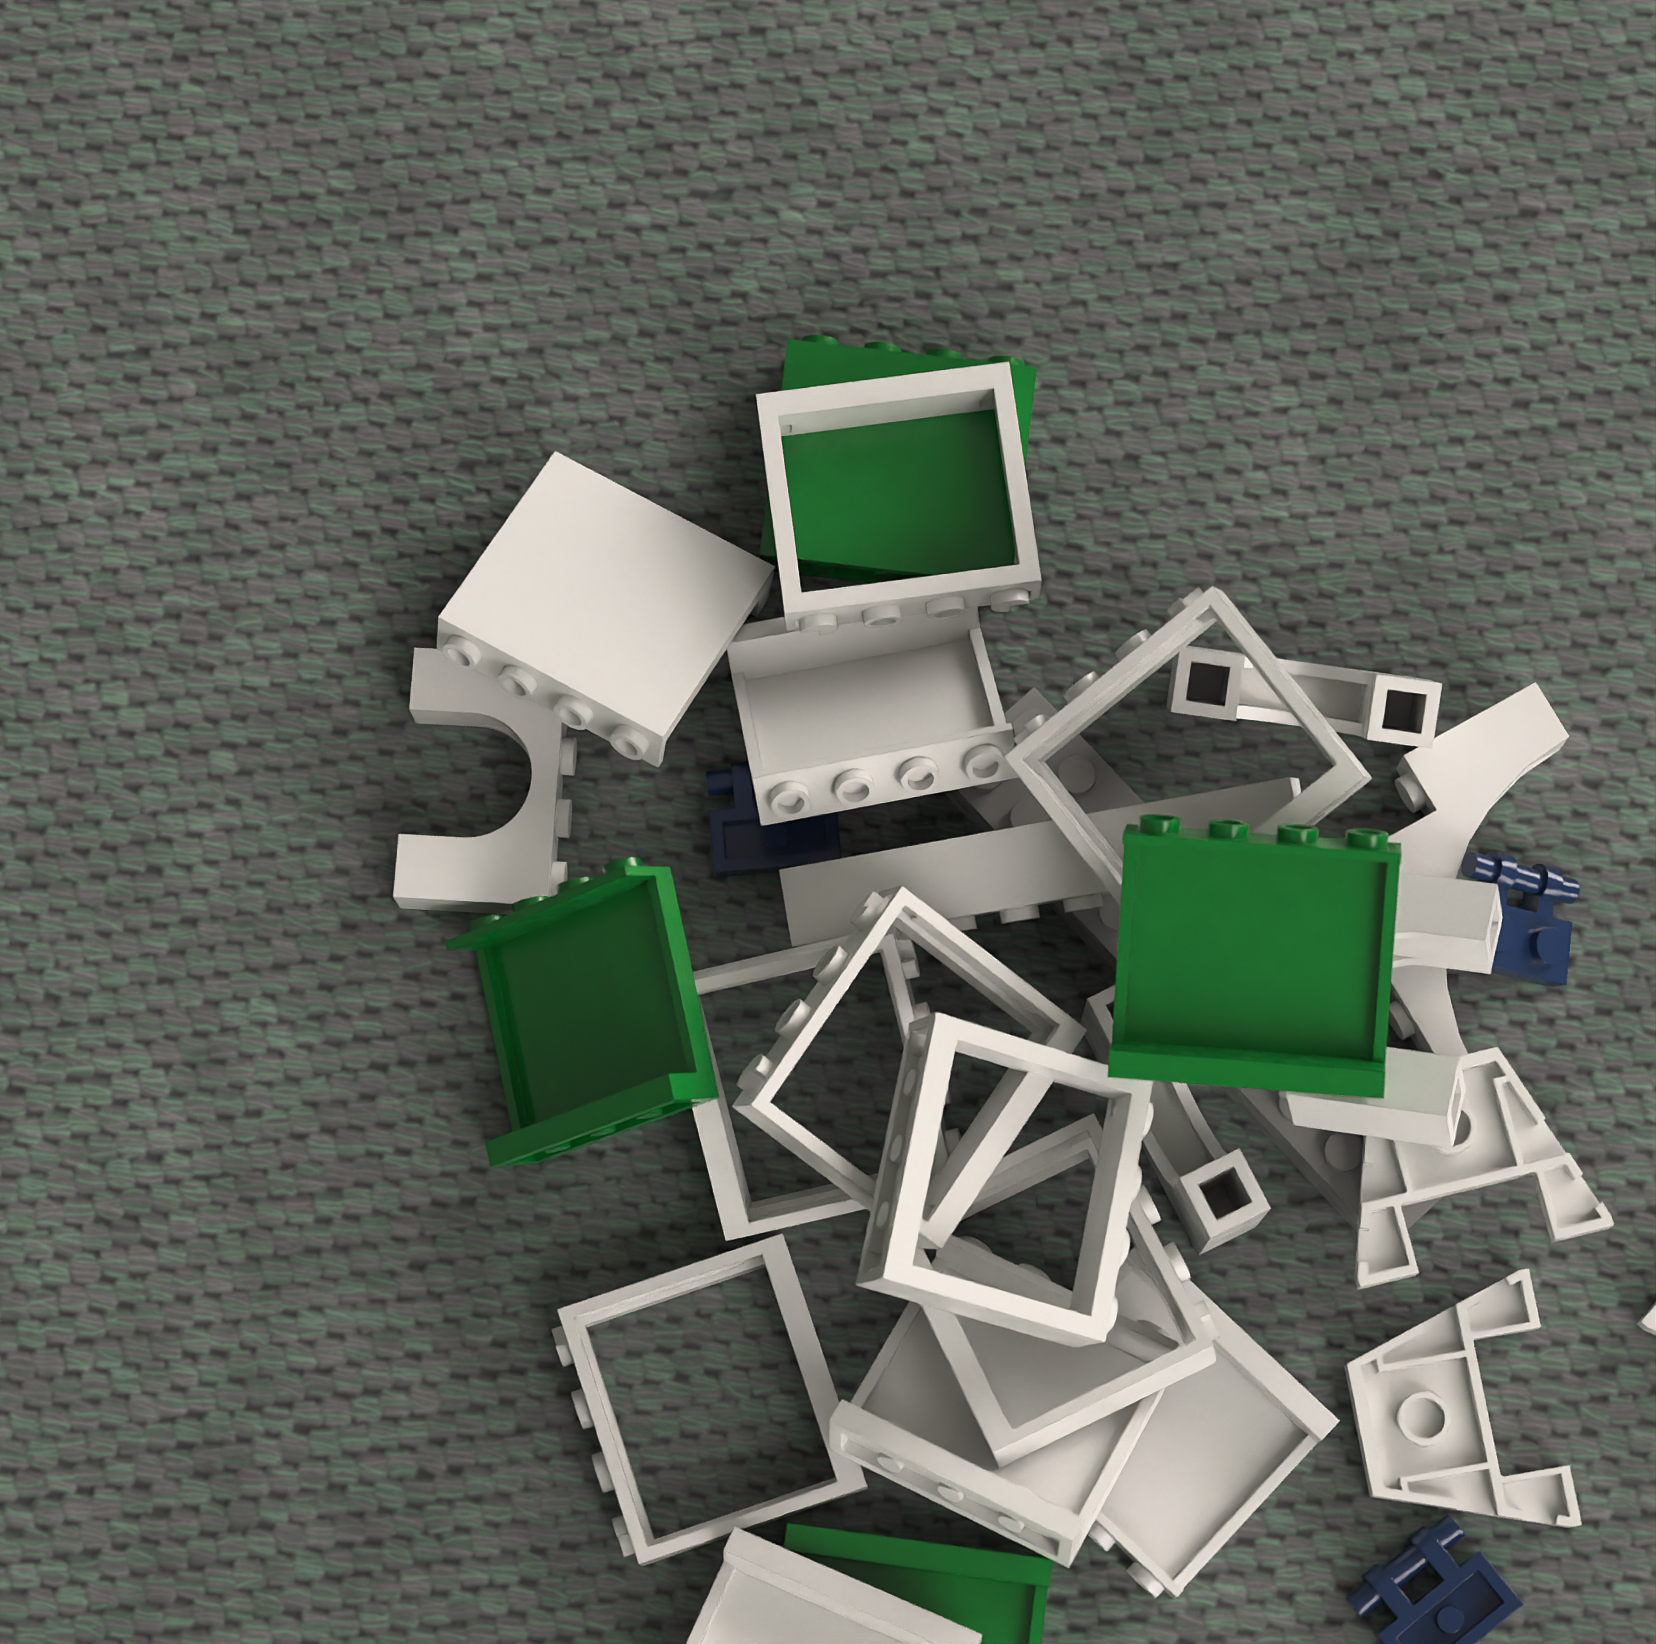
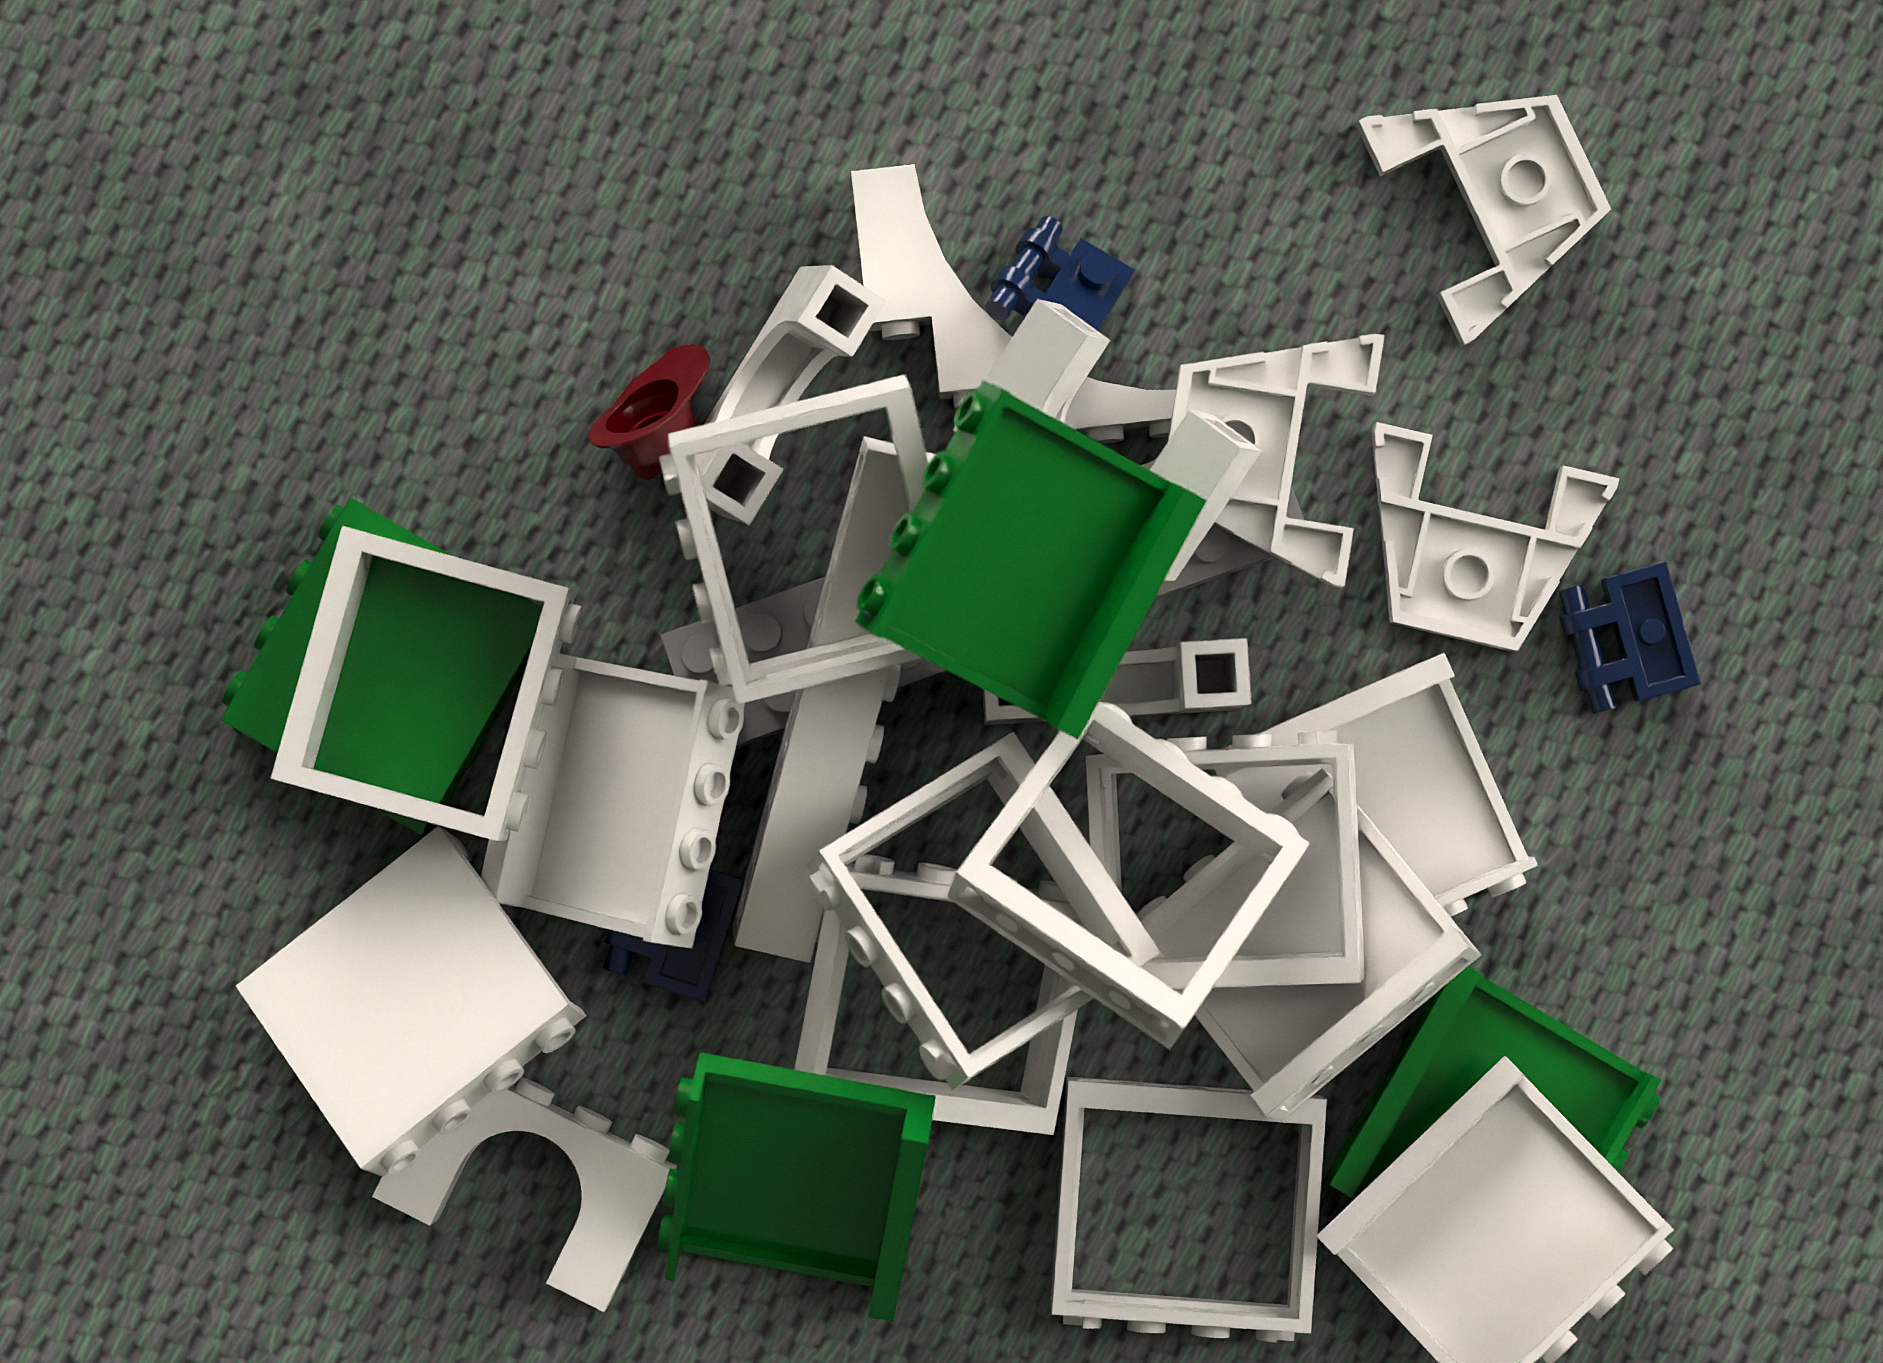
camera: 70 degrees left, 10 degrees up
(1253, 598) = (651, 409): none -> dark red piece

